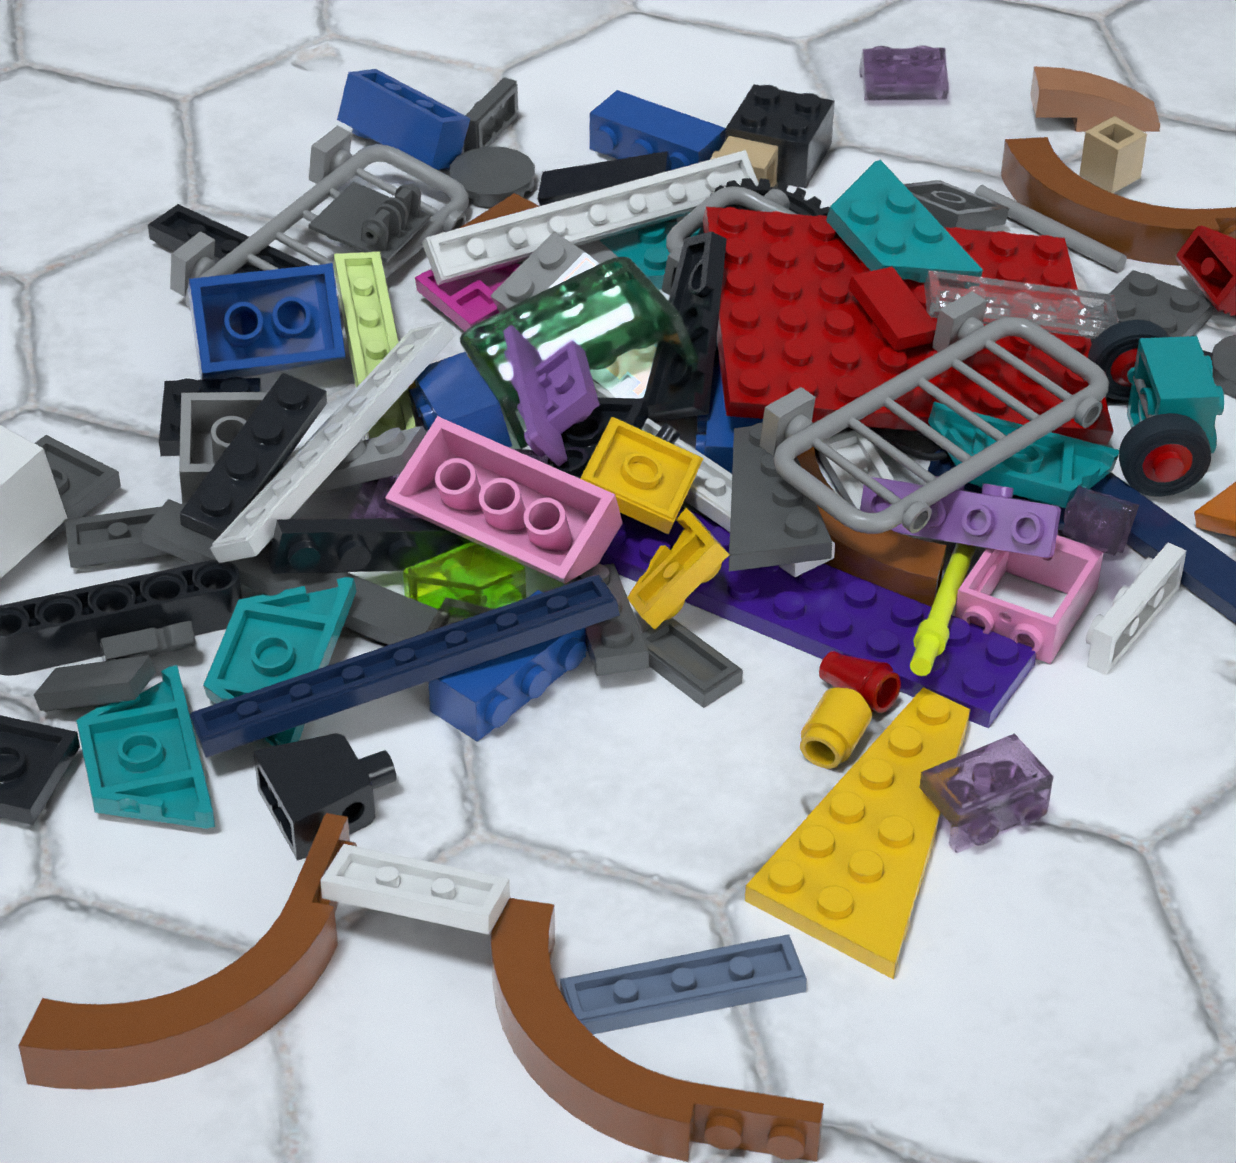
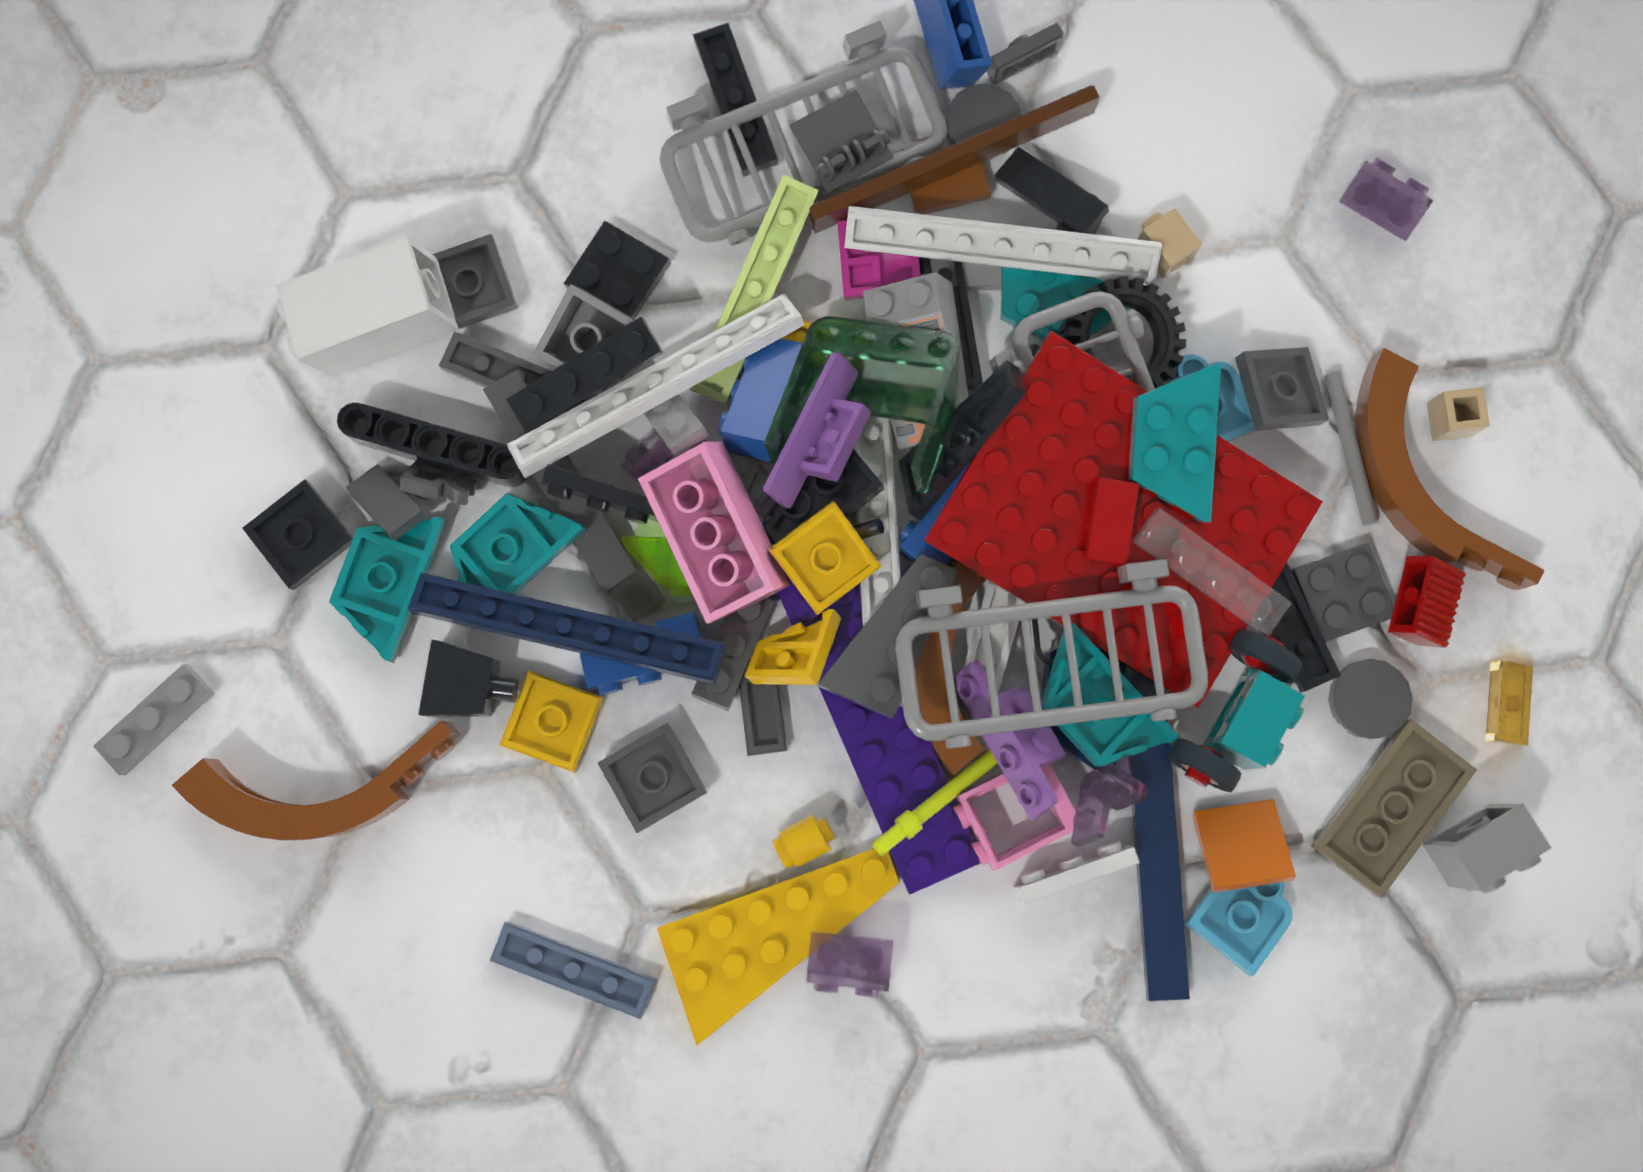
camera: 40 degrees right, 40 degrees up
(265, 321) = (684, 221): blue slope -> none
(416, 888) = (446, 824): white plate -> none
(454, 784) = (551, 721): none -> yellow tile
(492, 187) = (956, 157): none -> reddish brown tile
(608, 1089) = (466, 998): dark orange arch -> none
(616, 763) = (652, 777): none -> dark grey plate
(637, 127) = (1129, 160): blue brick -> none
(793, 122) = (1228, 218): black brick -> none
(868, 677) = (850, 813): red cone -> none
(1089, 99) = (1506, 330): nougat slope -> none

